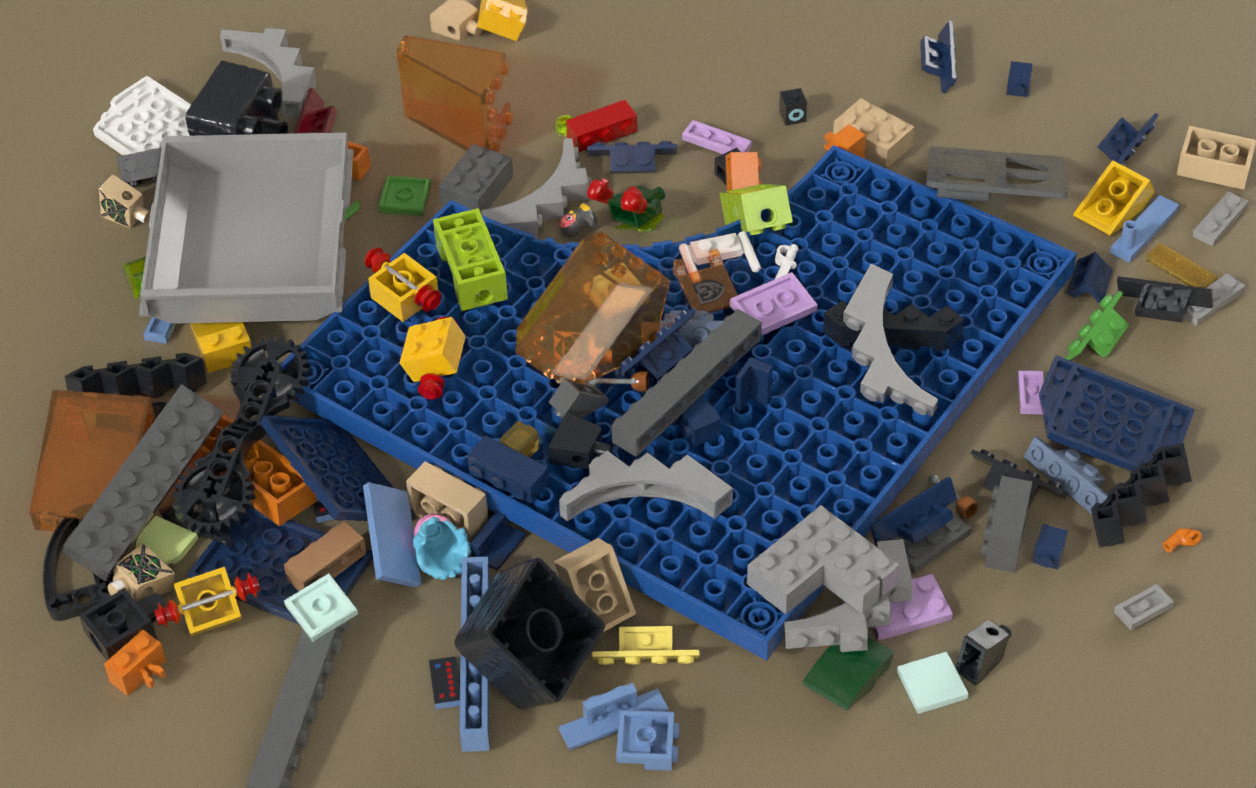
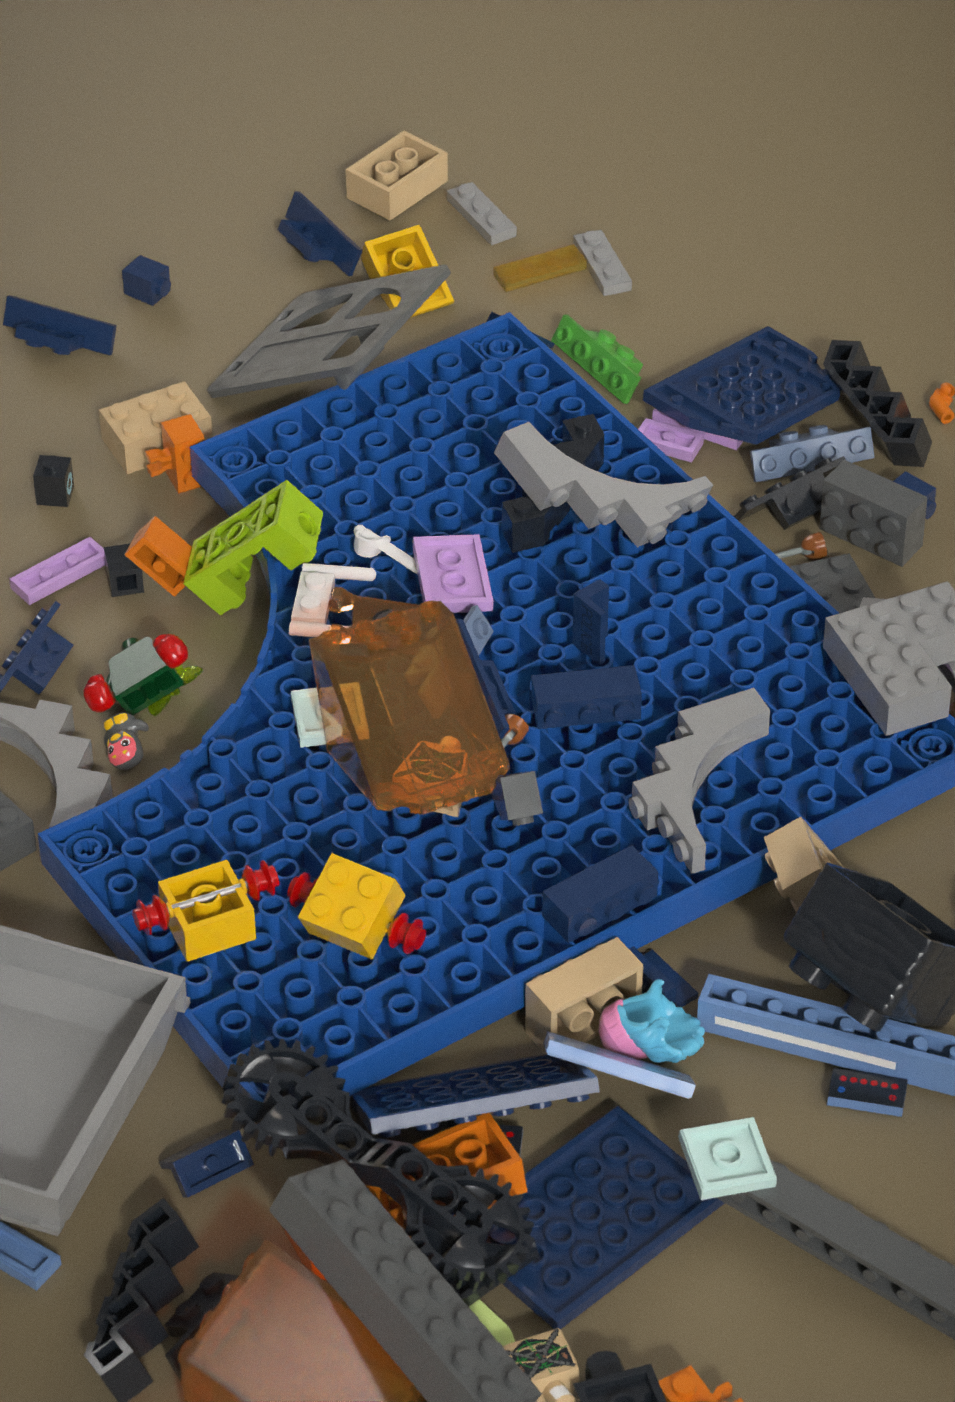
camera: 70 degrees left, 5 degrees down
(207, 601) = (637, 1293): yellow brick -> none
(220, 343) = (121, 1185): yellow slope -> none
(327, 555) = (621, 1149): medium nougat brick -> none
(472, 259) = (165, 809): lime plate -> none
(521, 439) = (557, 863): clear yellow brick -> none
(577, 443) = (589, 815): black torso -> none
(645, 643) = (908, 871): light yellow bracket -> none
(686, 382) = (570, 670): dark grey brick -> none
(918, 516) = (832, 571): dark blue bracket -> none
(1140, 232) = (468, 279): medium blue piece -> none
(1163, 299) = (593, 291): black bracket -> none

